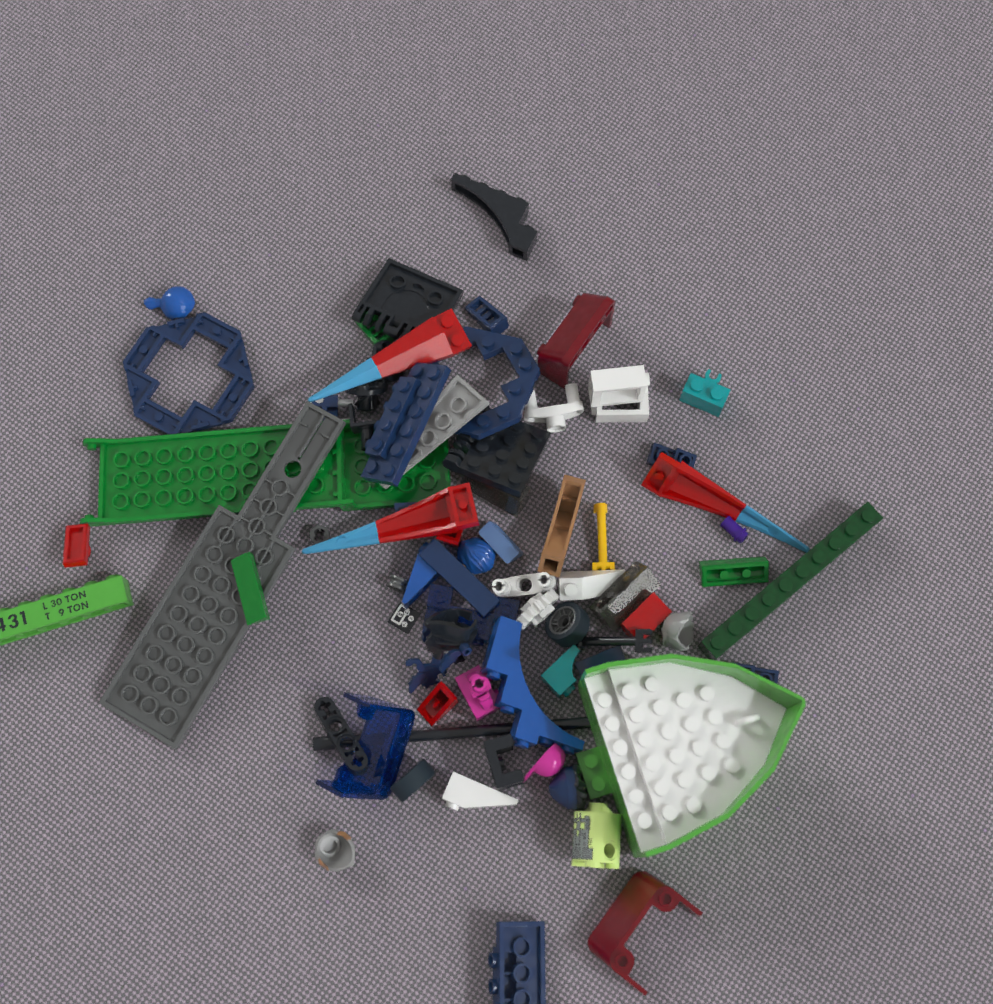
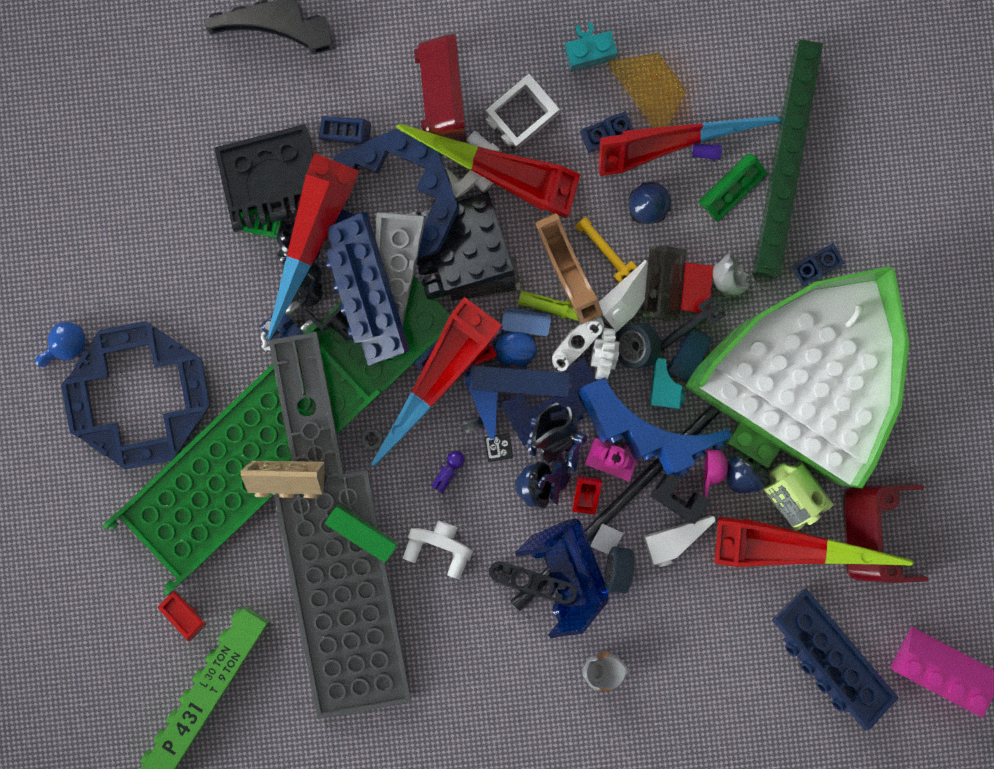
camera: 35 degrees left, 15 degrees up
(229, 500) = (284, 478): none -> tan slope
(306, 647) = (441, 537): none -> white connector
(363, 599) = (454, 461): none -> dark purple pin
(396, 666) = (527, 485): none -> black hair
(424, 749) = (606, 539): none -> white sticker
(524, 542) = (547, 305): none -> lime pin
(535, 852) = (761, 544): none -> red plate
(589, 449) = (535, 181): none -> red plate
(618, 385) = (517, 108): white window -> none
(661, 531) = (649, 203): none -> dark blue hair
(729, 452) = (650, 86): none -> clear yellow wing

